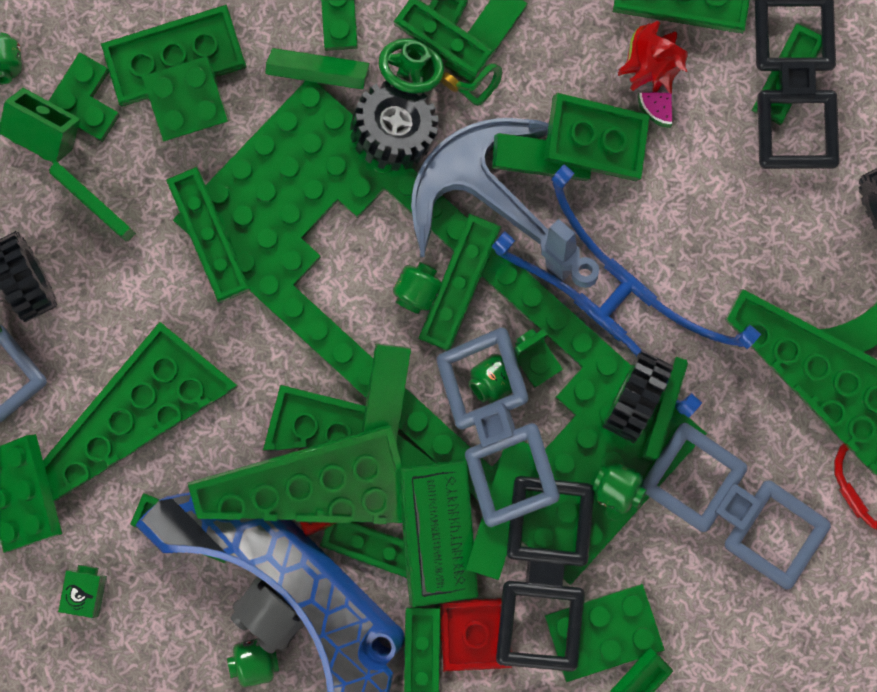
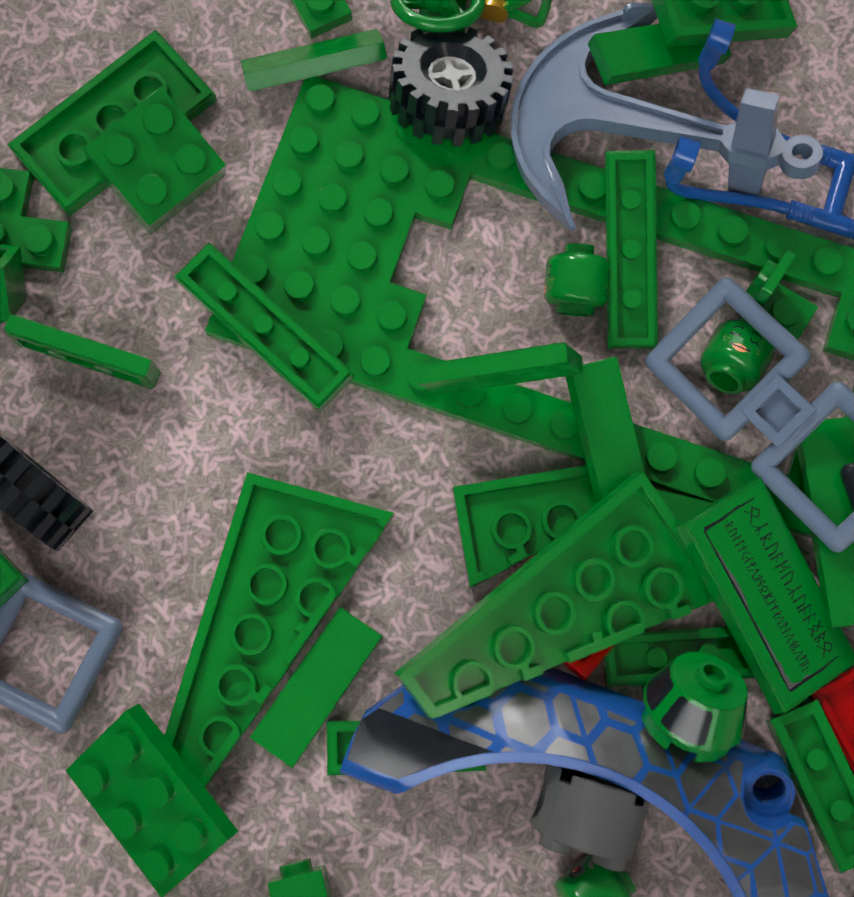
camera: 25 degrees left, 5 degrees down
(146, 469) = (316, 687): none -> green tile
(334, 326) = (500, 368): none -> green tile
(360, 579) = (696, 705): none -> green cone

